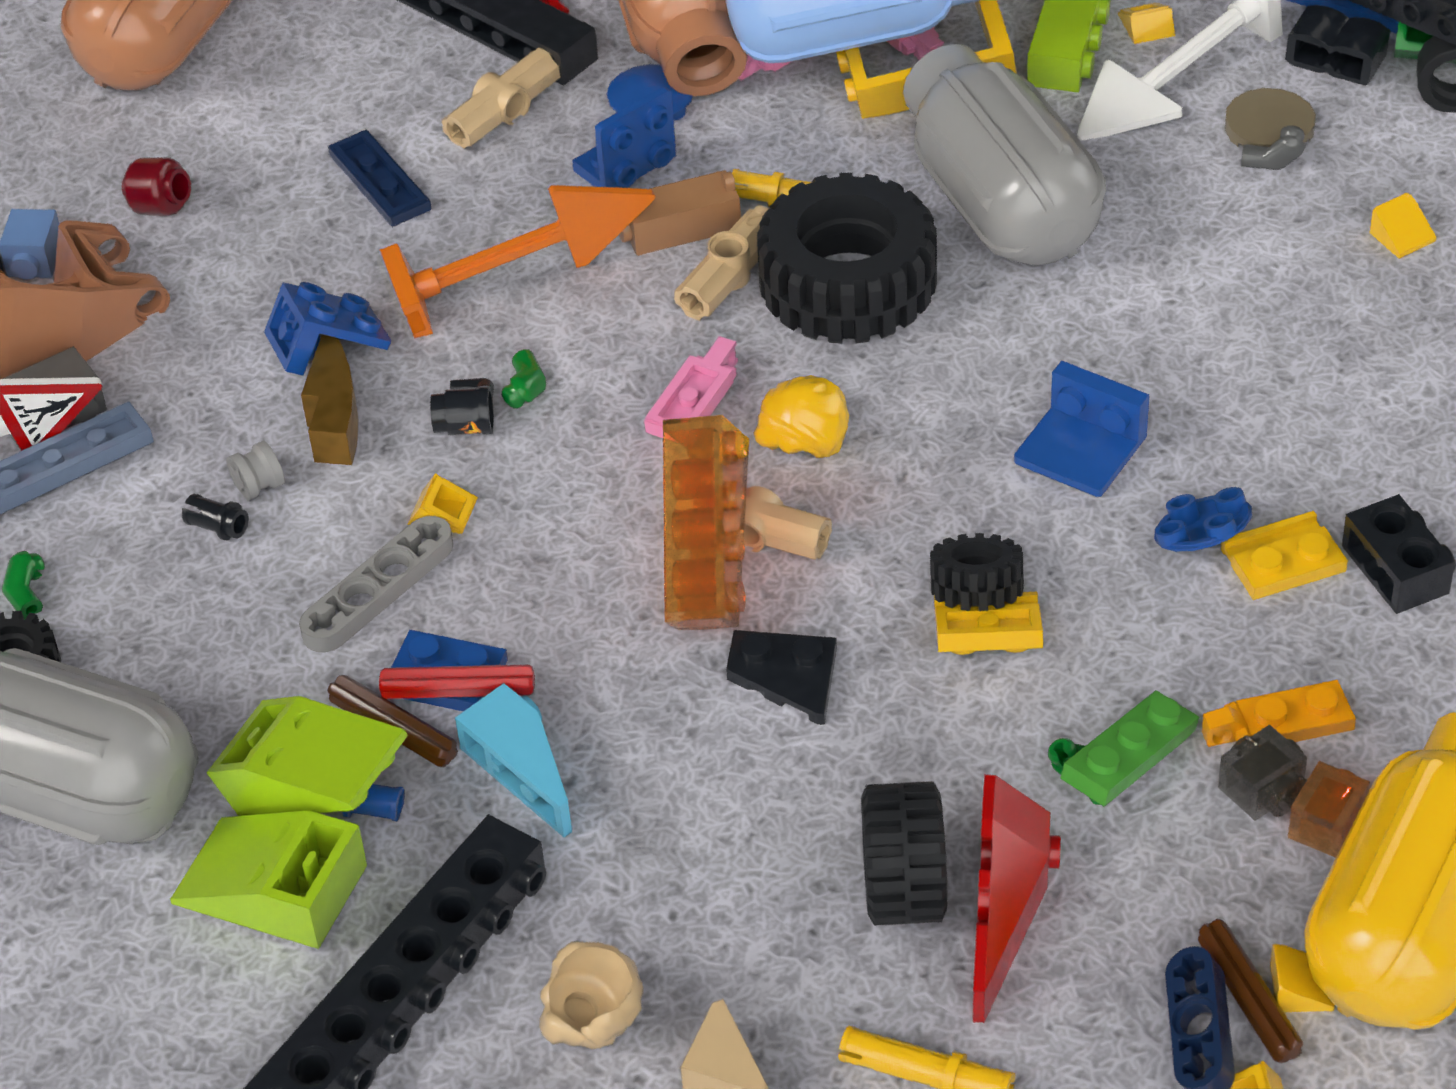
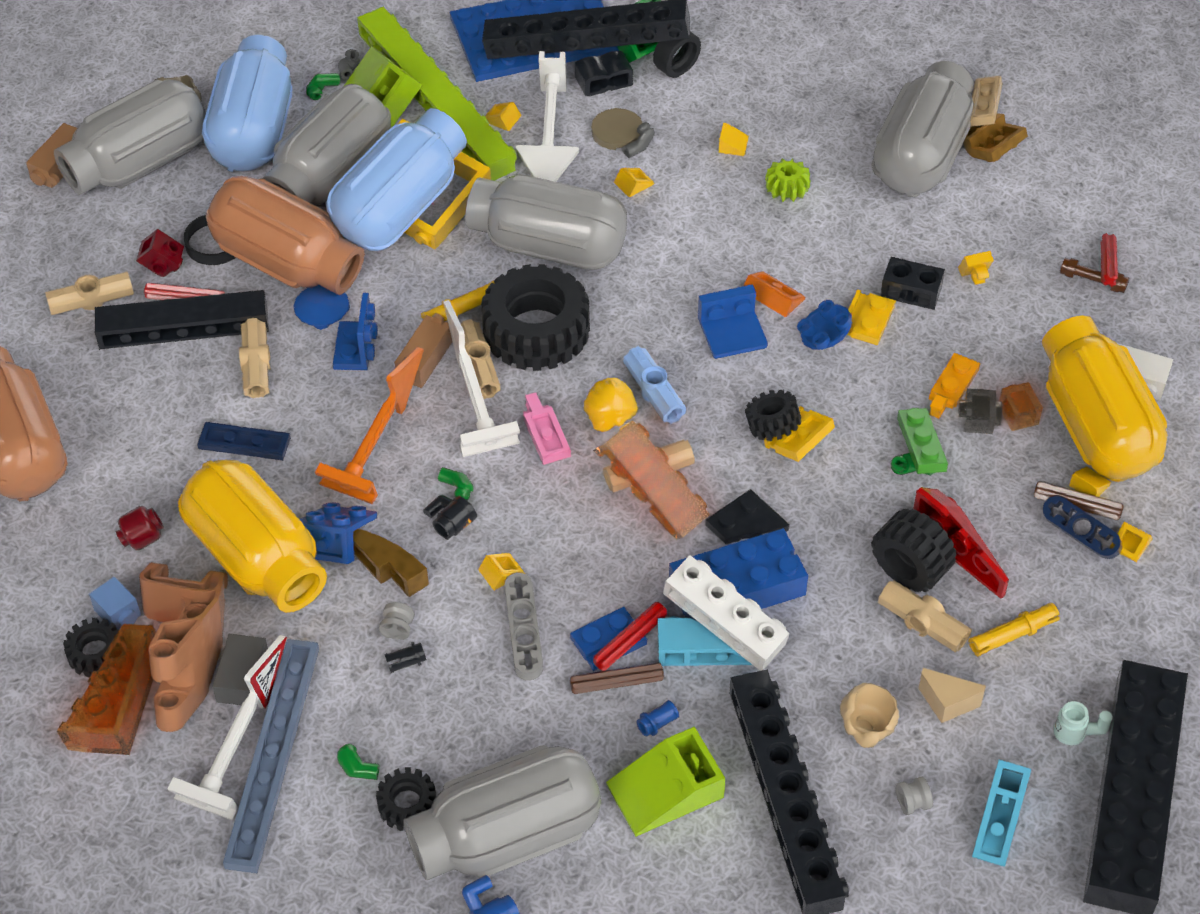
camera: 50 degrees left, 5 degrees up
(219, 260) = (252, 534): none -> yellow piece
(303, 758) = (626, 721): lime slope -> none
(560, 729) = (726, 612): none -> white brick
(624, 352) = (487, 436): none -> white piece
(666, 721) = (758, 568): none -> blue piece
(832, 952) = (924, 615): none -> tan piece
(887, 434) = (654, 385): none -> light blue piece
(1199, 439) = (774, 293): none -> orange slope
(1206, 193) = (632, 181): none -> yellow slope
(1405, 317) = (787, 179): none -> lime gear

